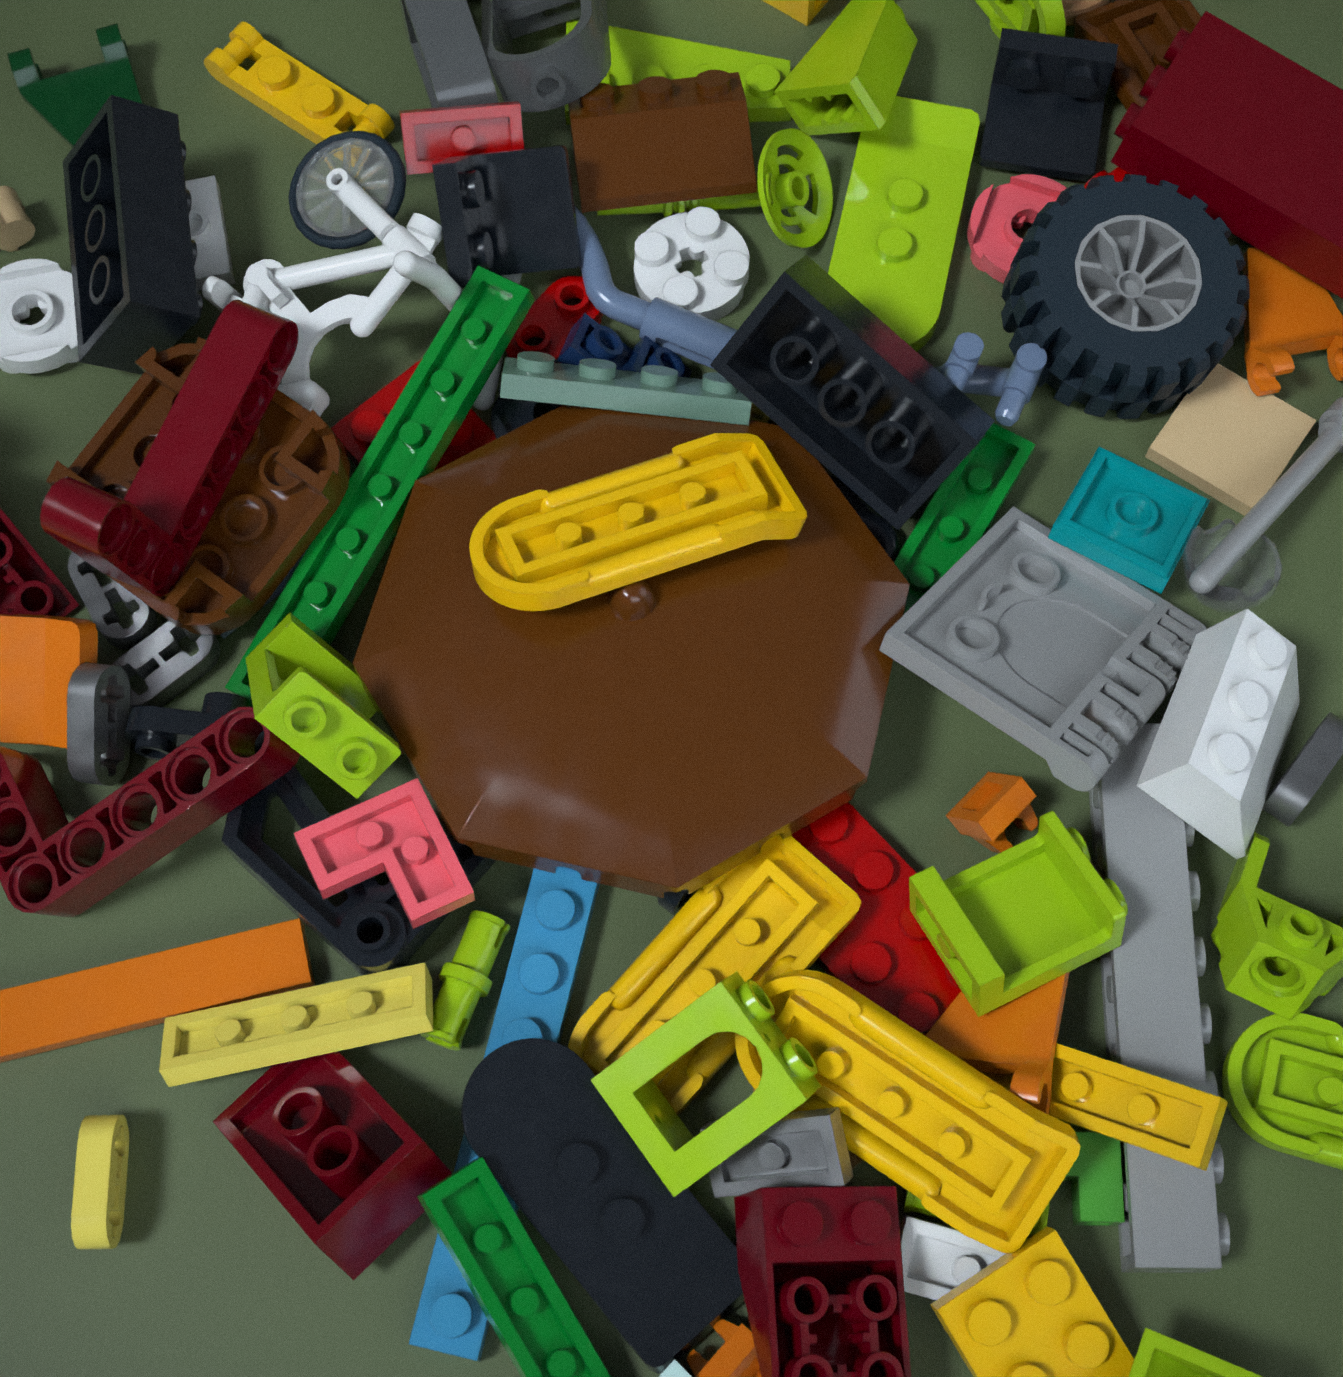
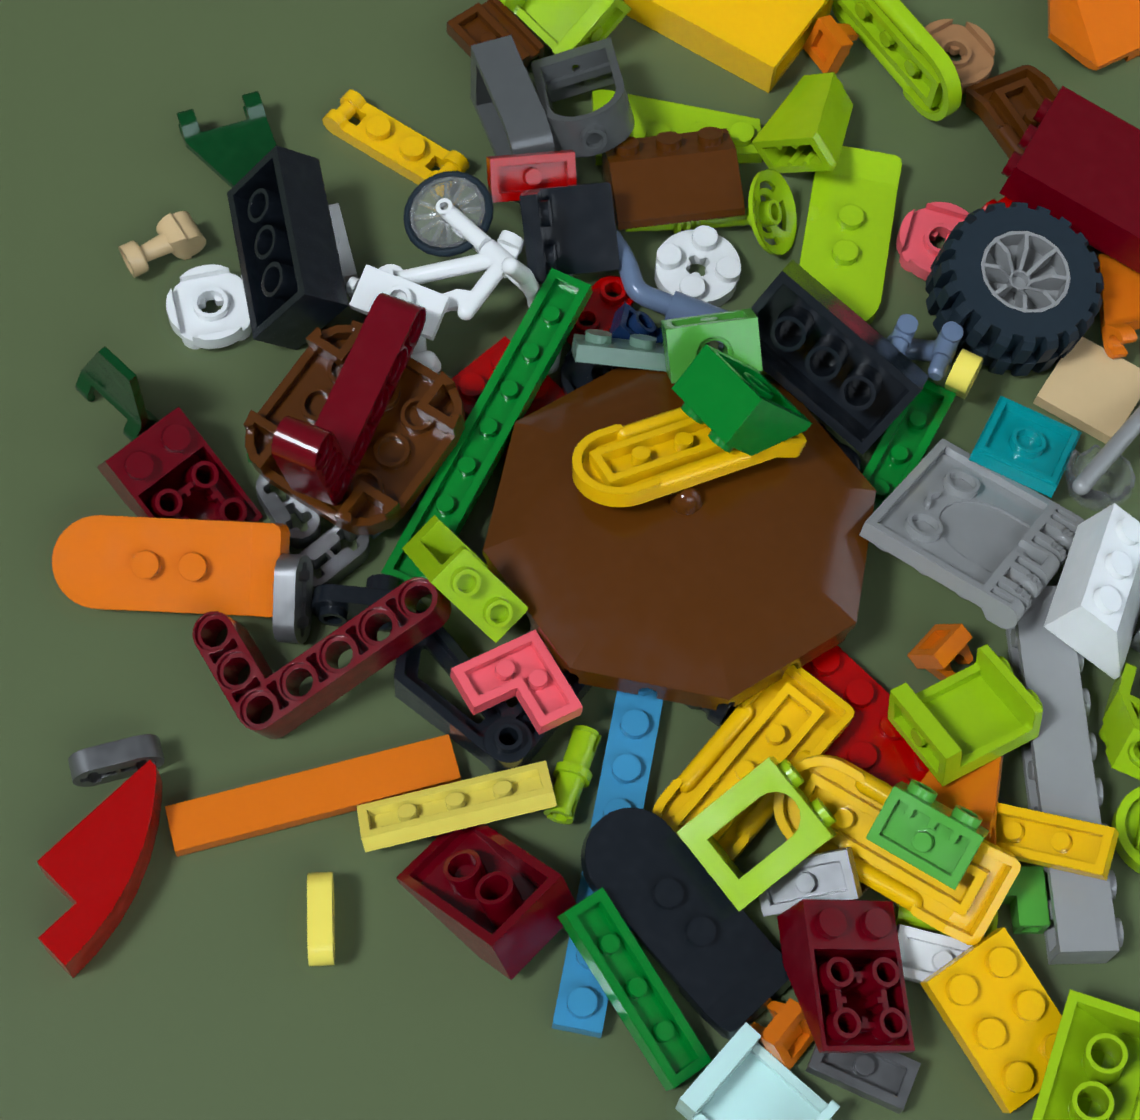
camera: 10 degrees left, 5 degrees down
(311, 314) = (375, 281): none -> white plate
(650, 362) = (687, 335): none -> bright green brick
(707, 463) = (737, 403): none -> green slope
(947, 1096) = (928, 832): none -> bright green bracket
(1046, 104) = (949, 151): black bracket -> none
(1046, 416) = (963, 373): none -> light yellow beam

